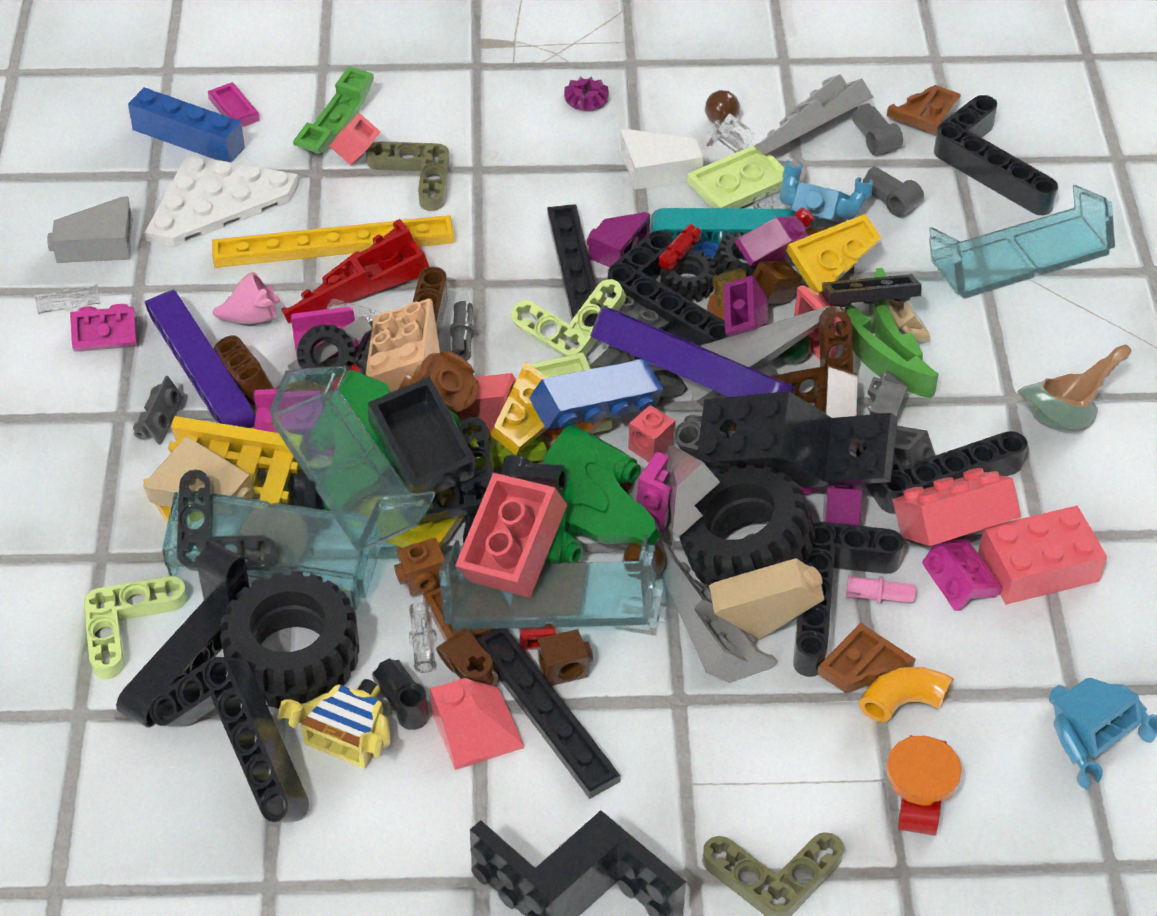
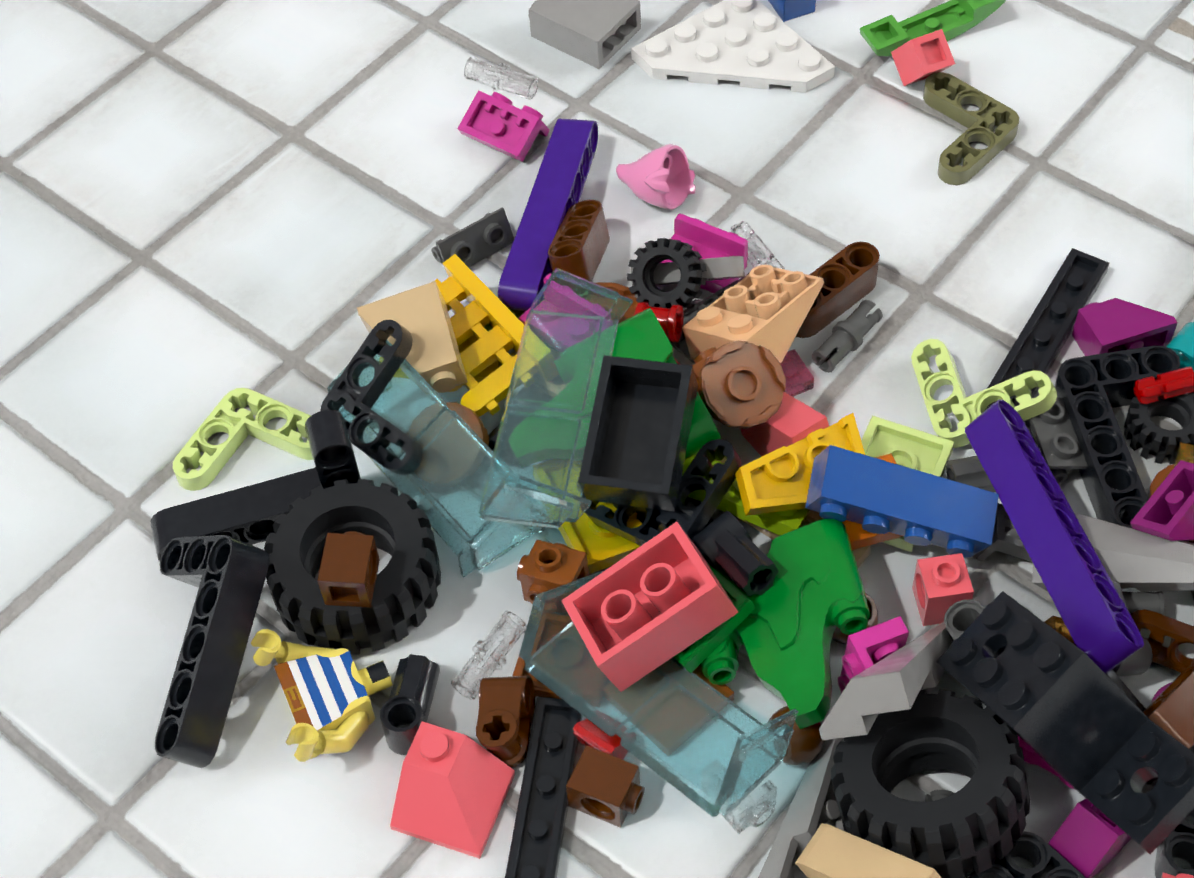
camera: 45 degrees right, 5 degrees up
(312, 627) = (348, 569): none -> reddish brown brick
(323, 241) = (813, 161): yellow tile -> none
(381, 266) = (808, 211): red wedge -> none

